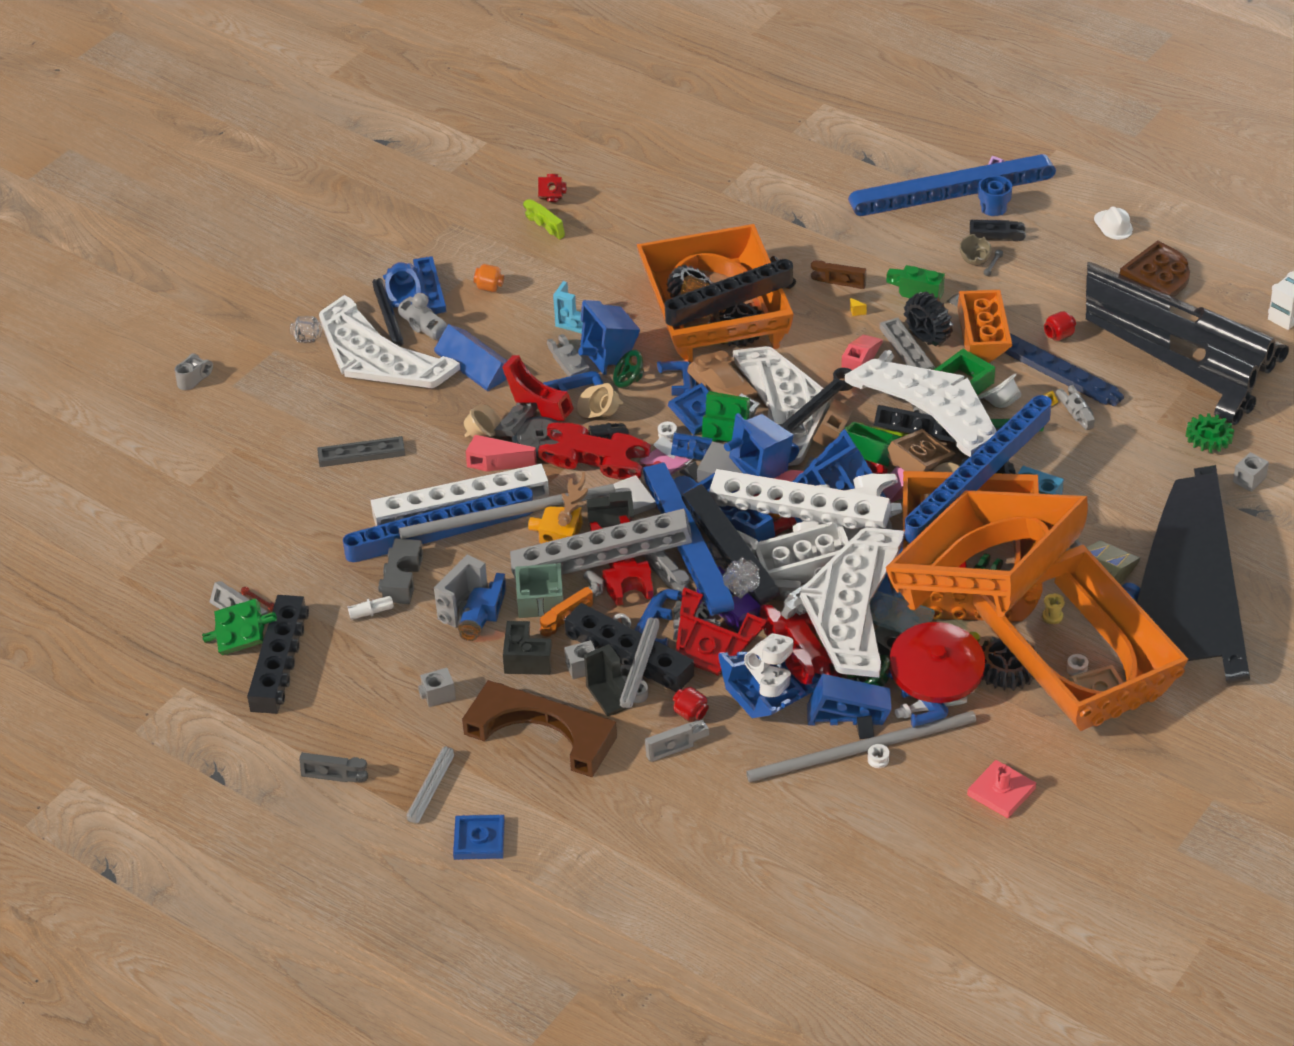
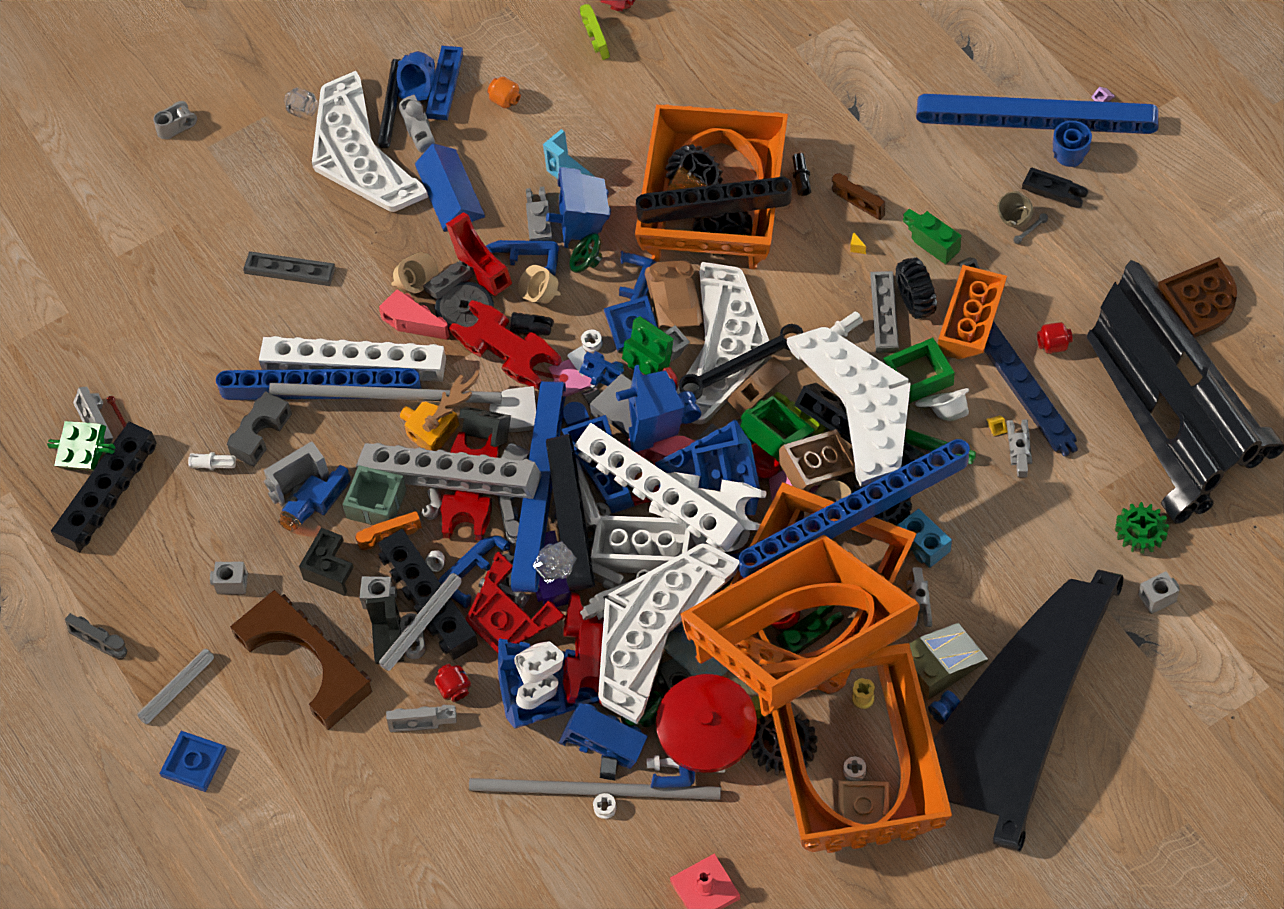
camera: 25 degrees right, 15 degrees up
(860, 351) = (828, 307): coral slope -> none
(1114, 223) = (1187, 216): white piece -> none

